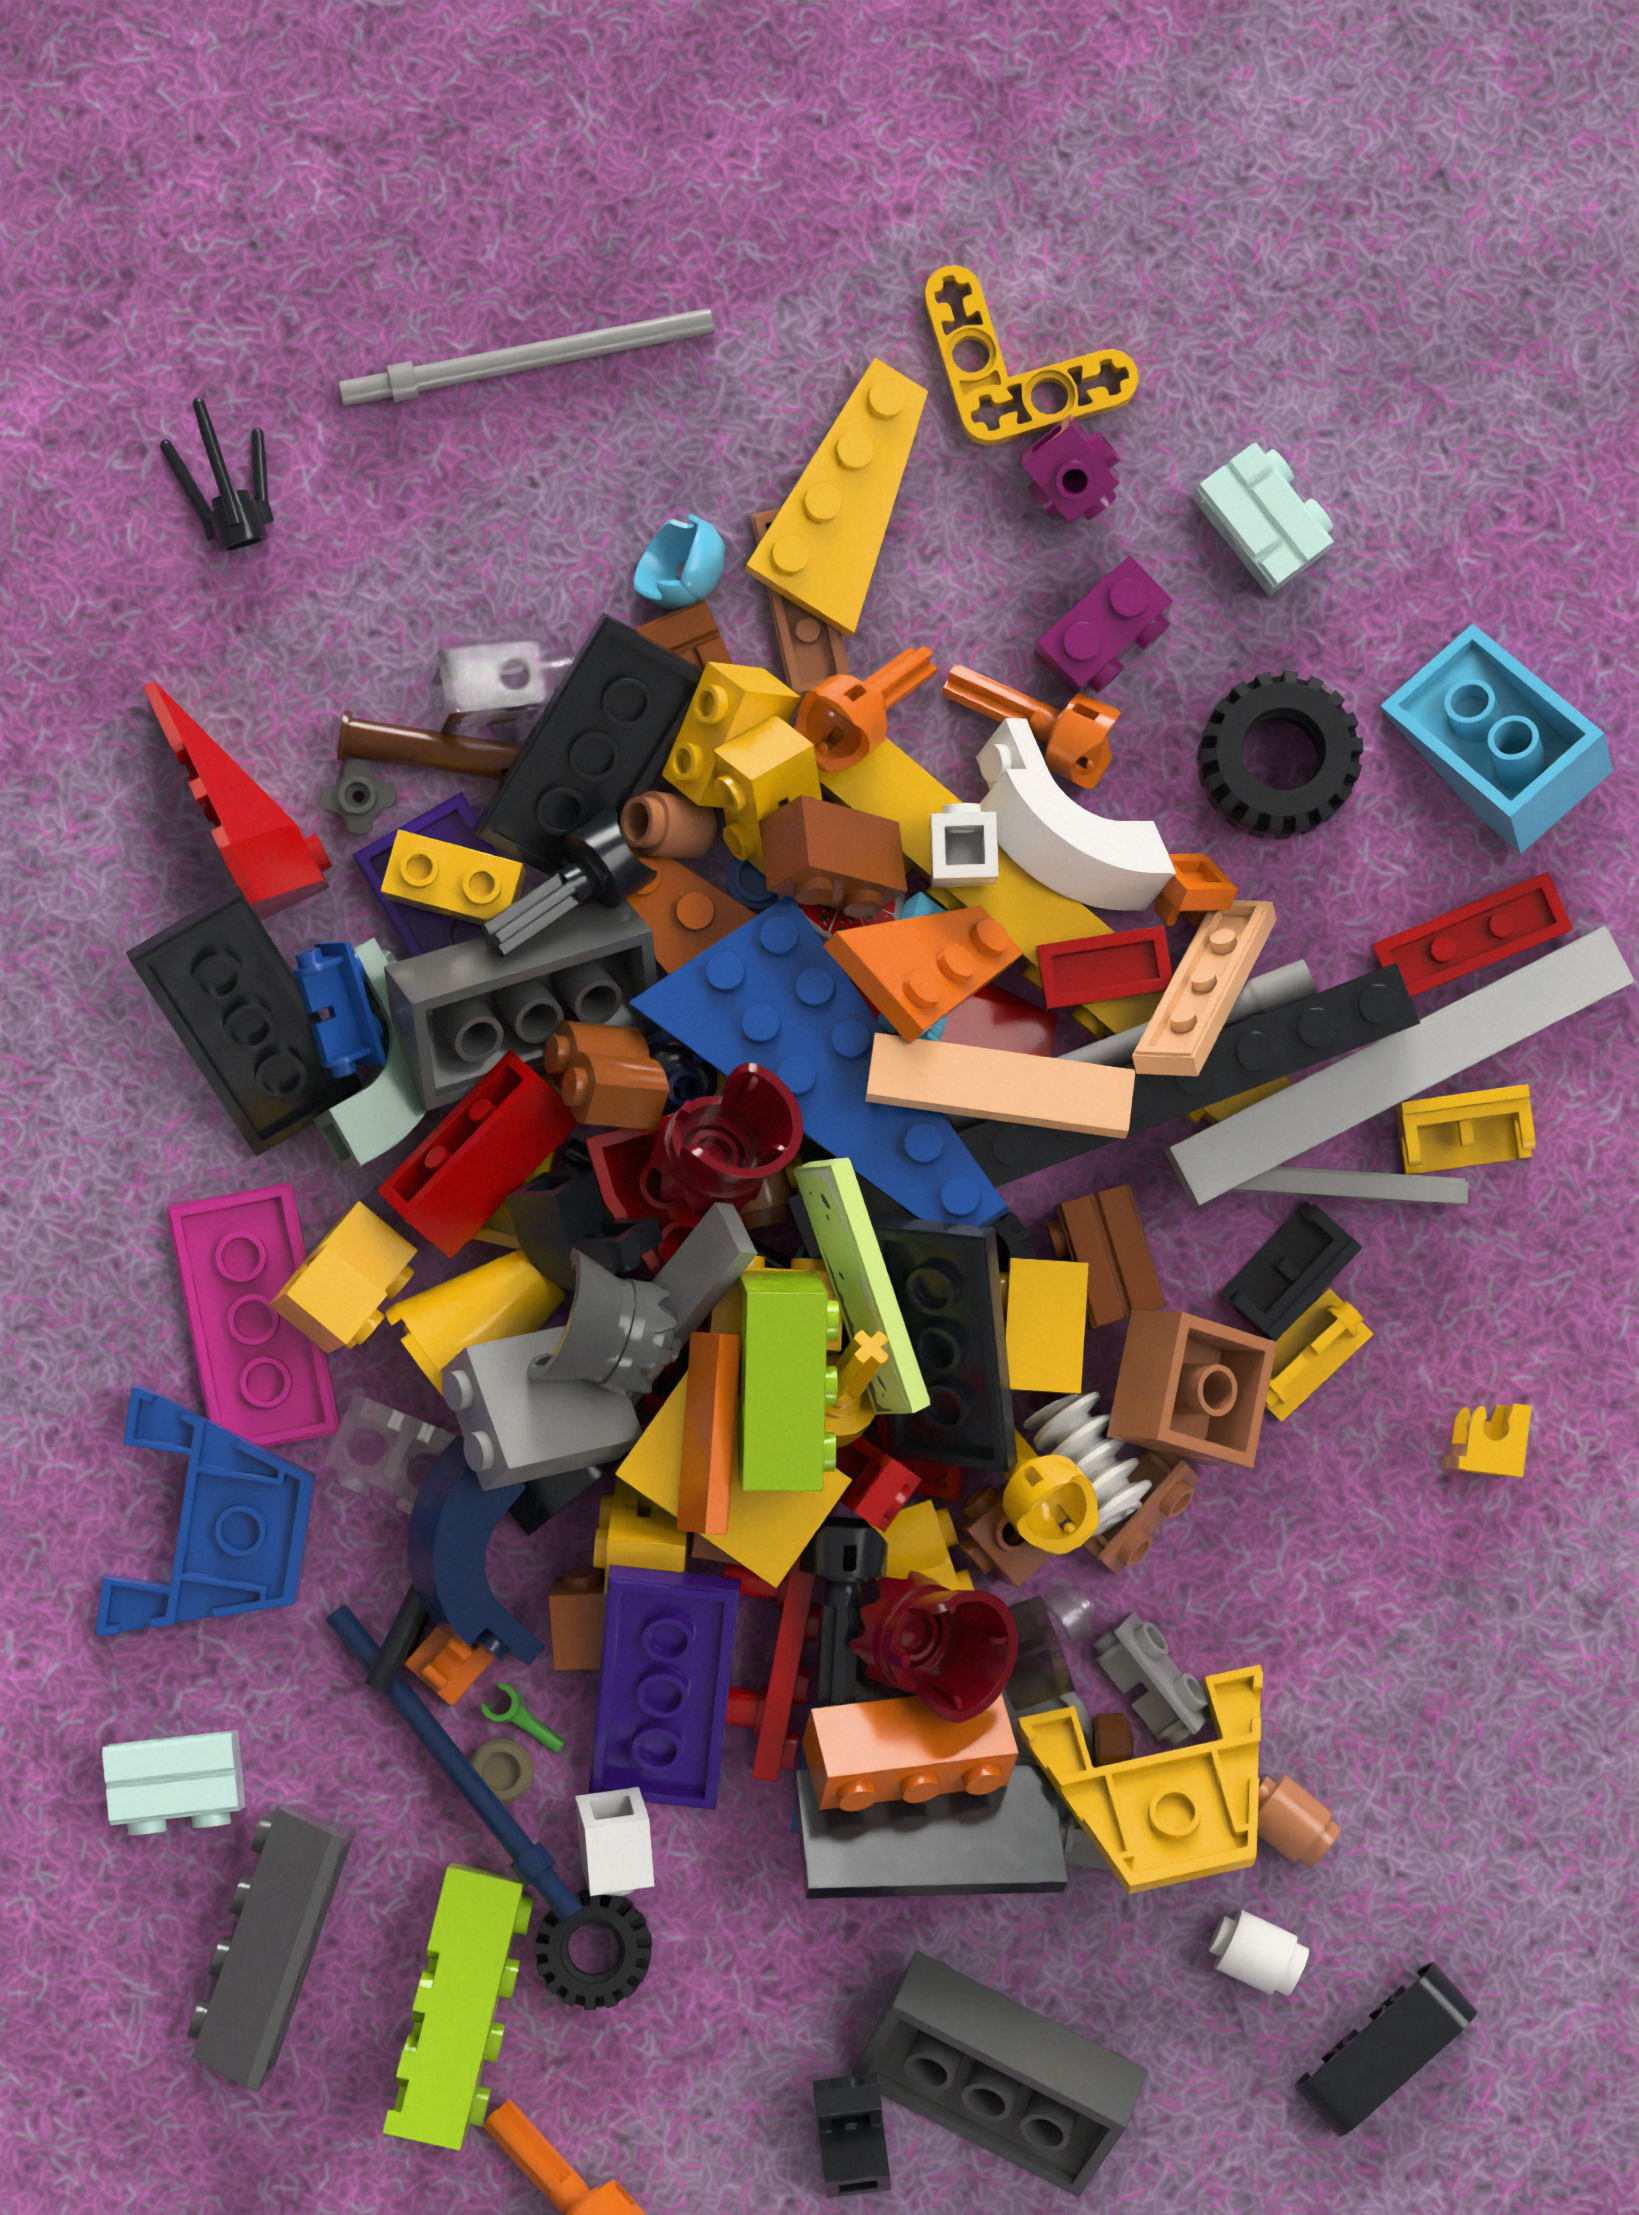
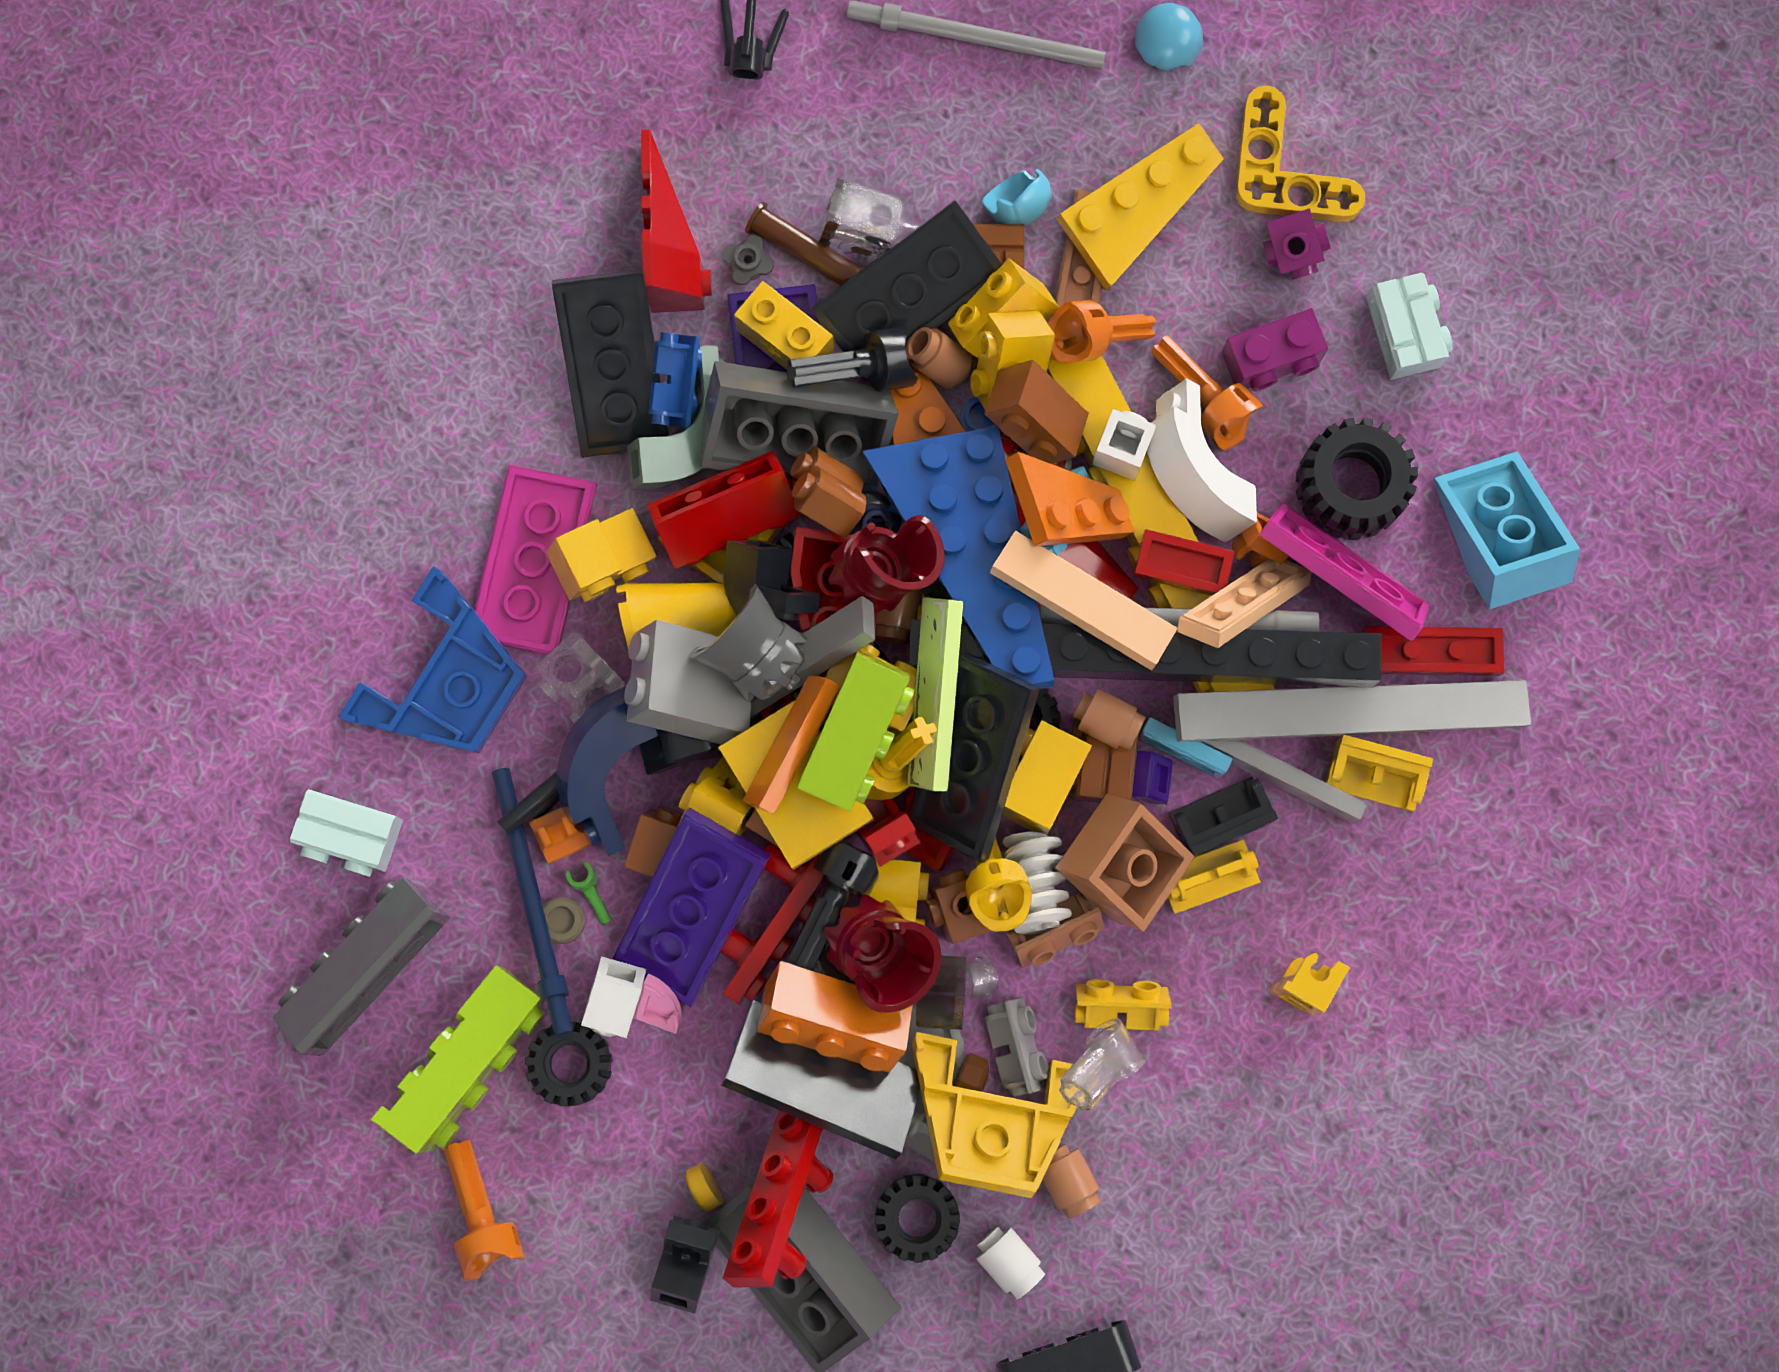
camera: 25 degrees right, 5 degrees down
(676, 1825) = (658, 1005): none -> bright pink tile
(785, 252) = (1169, 36): none -> medium azure hair
(833, 2028) = (703, 1187): none -> yellow tile
(935, 2017) = (762, 1237): none -> red plate
(1094, 1216) = (1109, 719): none -> nougat brick
(1119, 1989) = (938, 1239): none -> black tyre
(1180, 1260) = (1152, 777): none -> dark purple tile
(1227, 1206) = (1193, 753): none -> medium azure tile
(1276, 1645) = (1108, 1059): none -> clear piece
(1289, 1553) = (1144, 1004): none -> yellow hinge
(1316, 885) = (1346, 571): none -> dark pink tile

